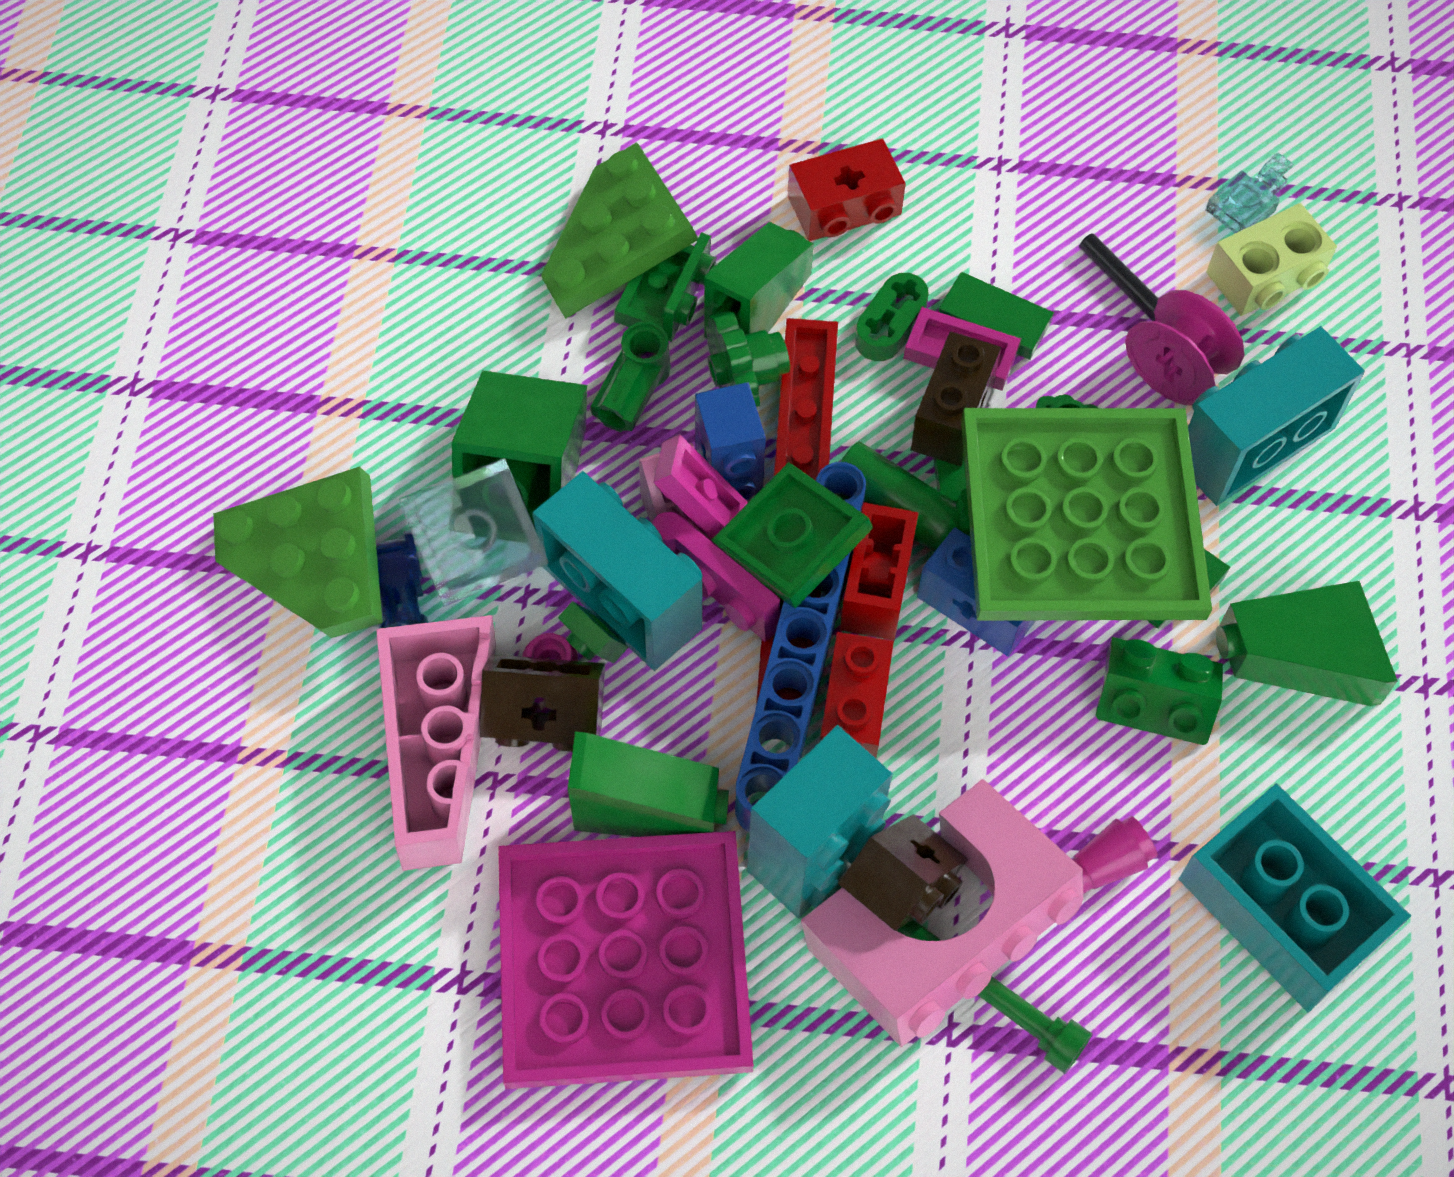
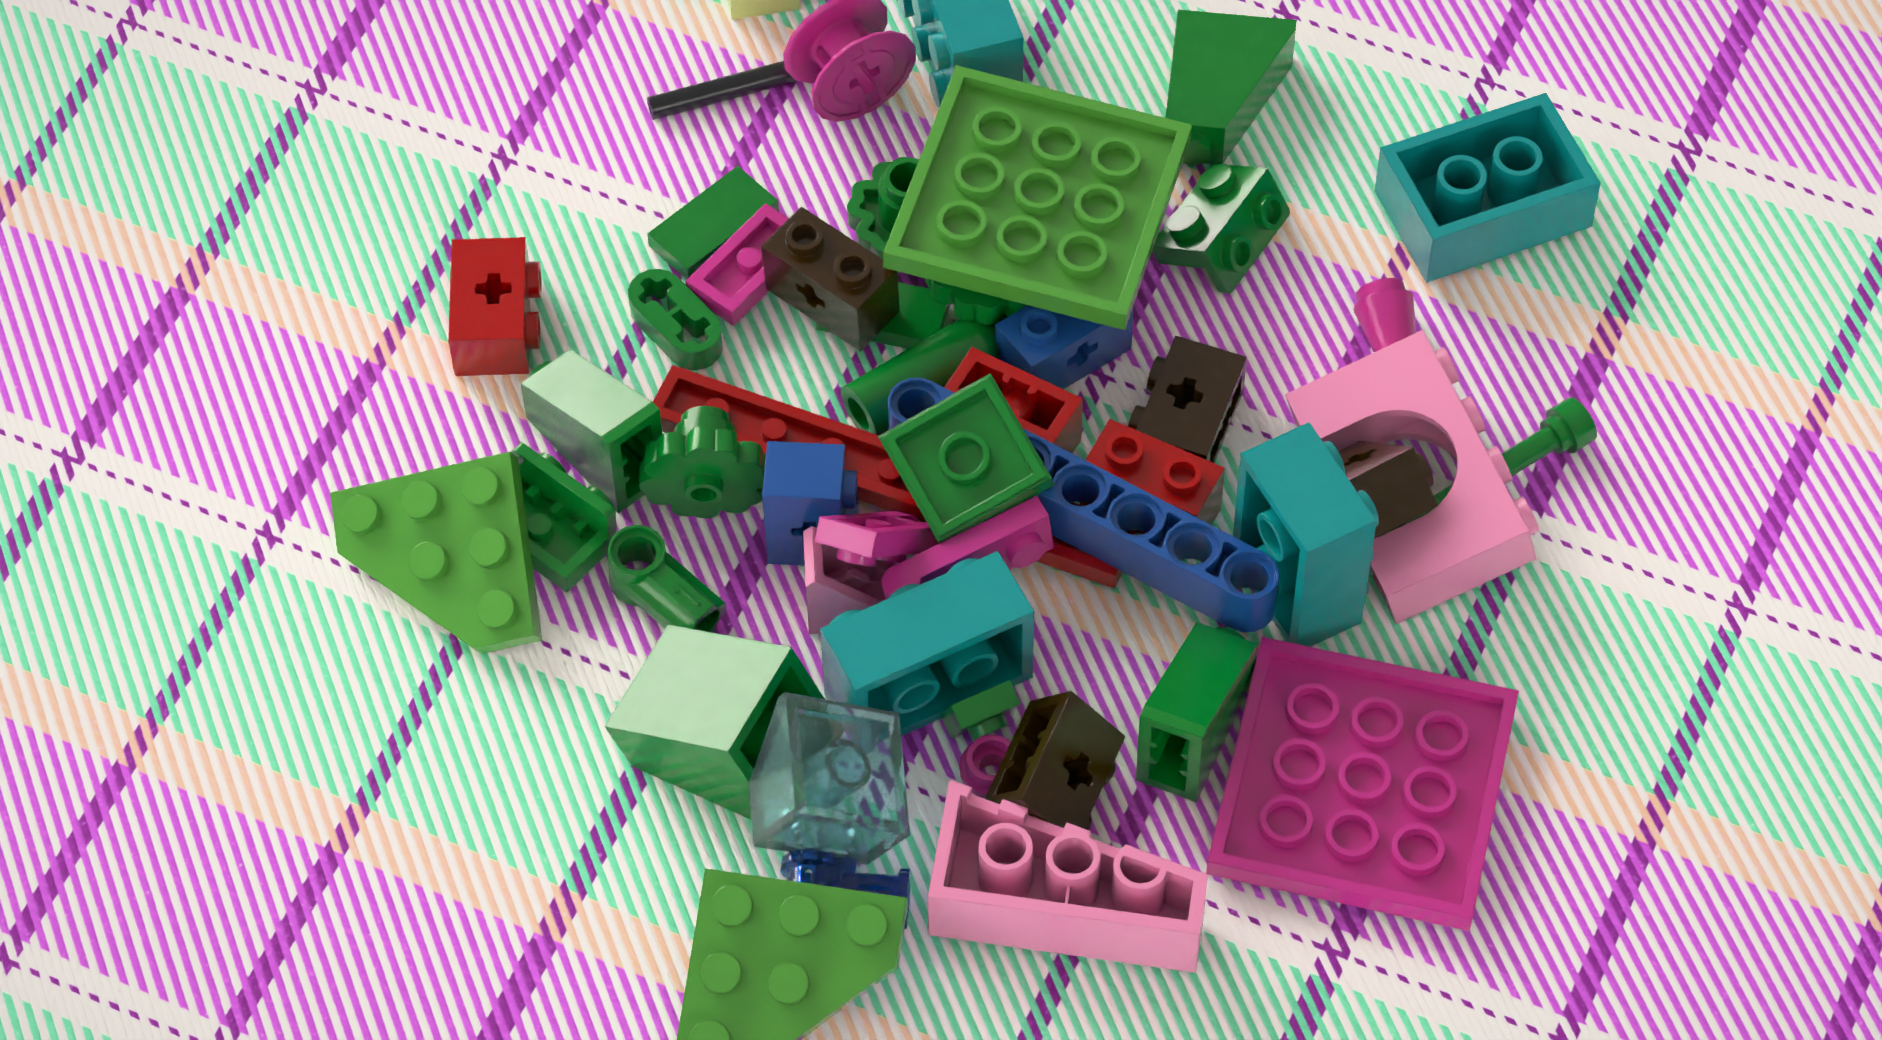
camera: 70 degrees left, 5 degrees down
(922, 726) = (1192, 397): none -> dark brown brick

